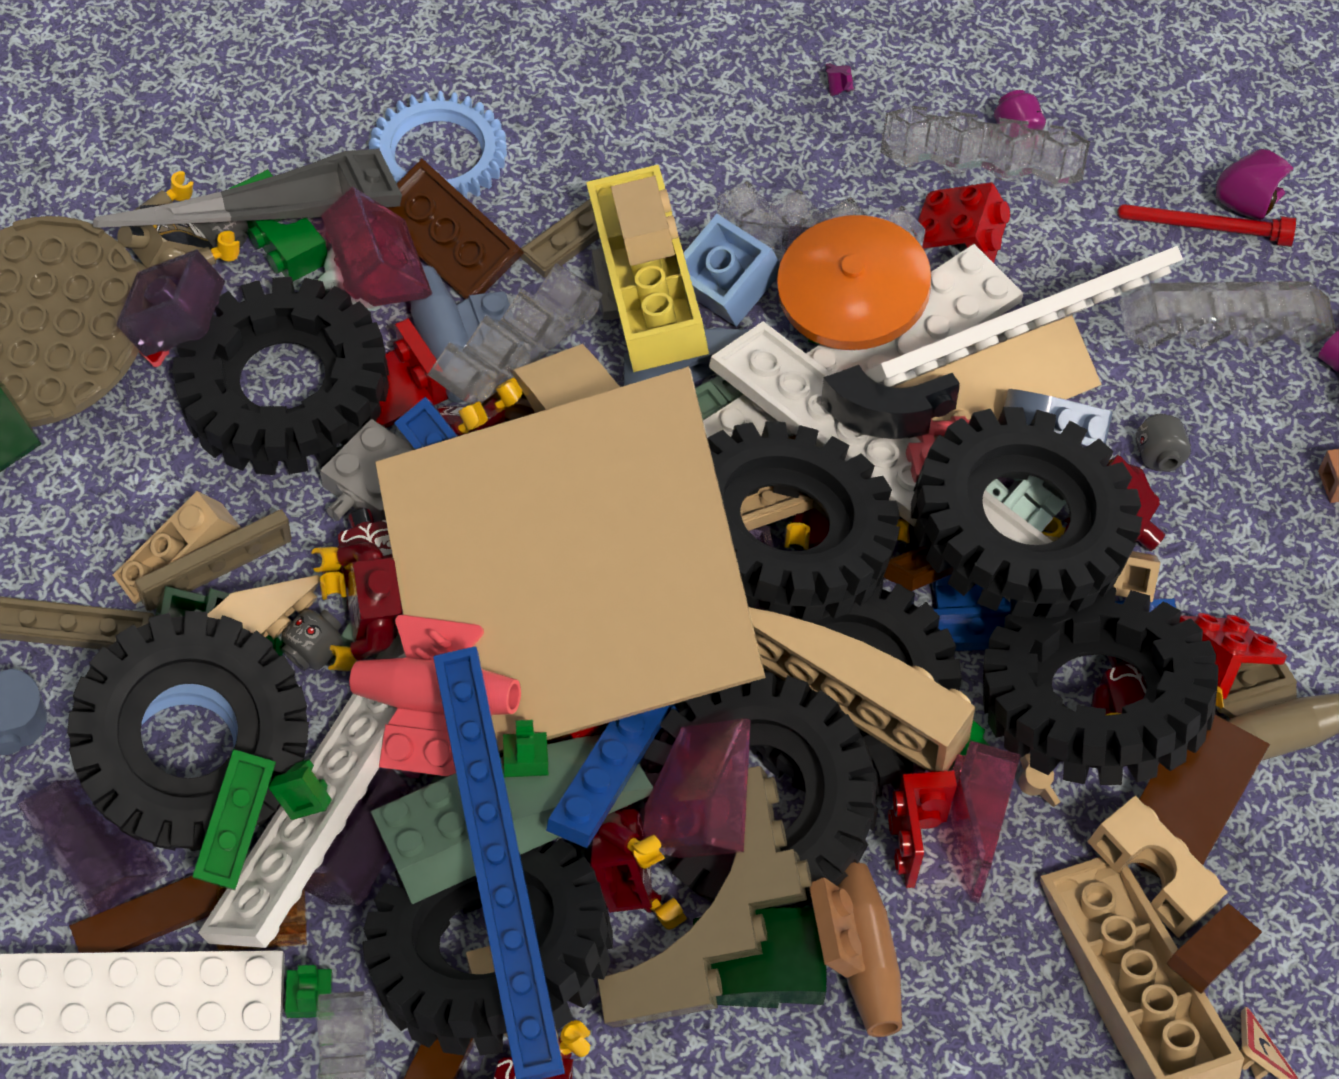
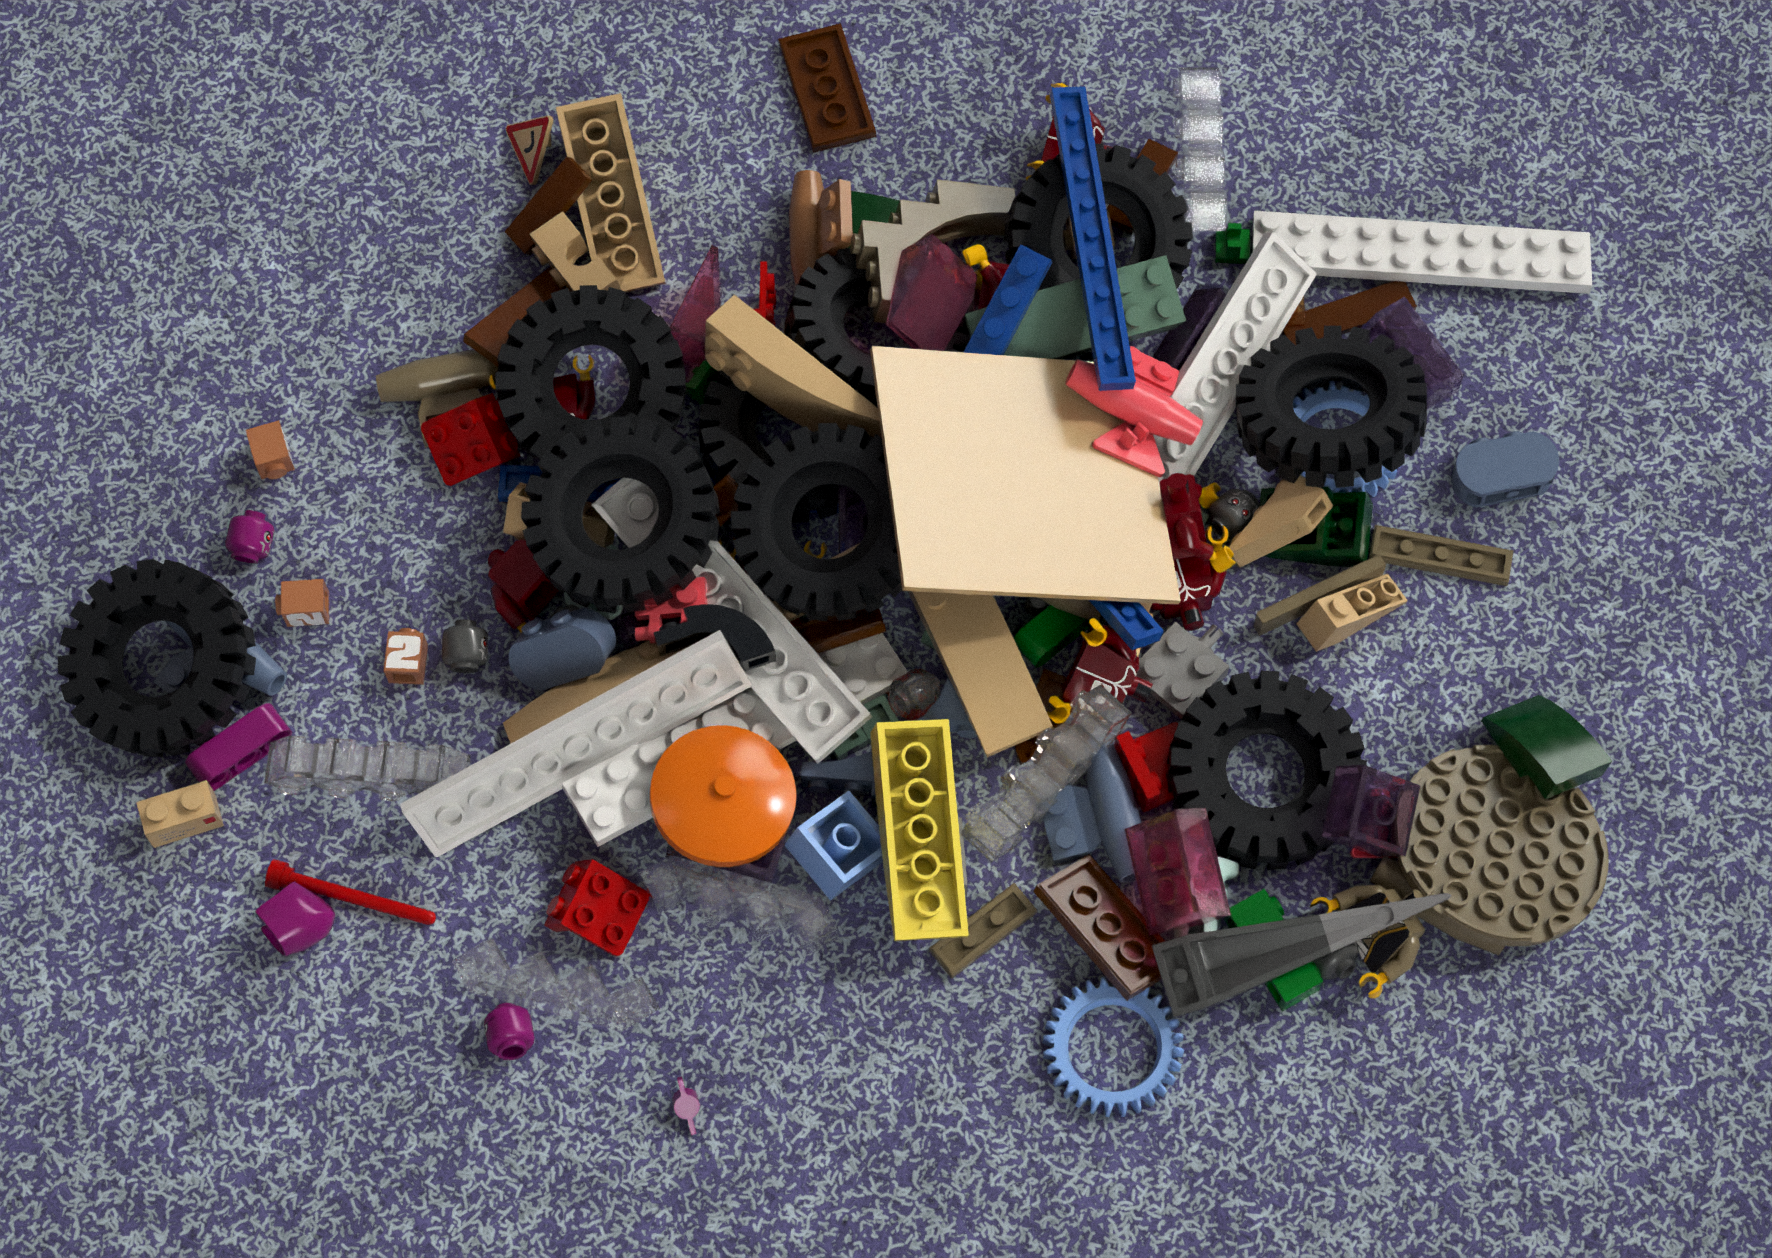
camera: 170 degrees left, 10 degrees up
(234, 820) = (1292, 330): green plate -> none
(300, 791) = (1239, 349): green tile -> none
(525, 751) = (1063, 341): green tile -> none
(643, 220) = (919, 844): tan brick -> none
(1223, 427) = (405, 657): none -> brick

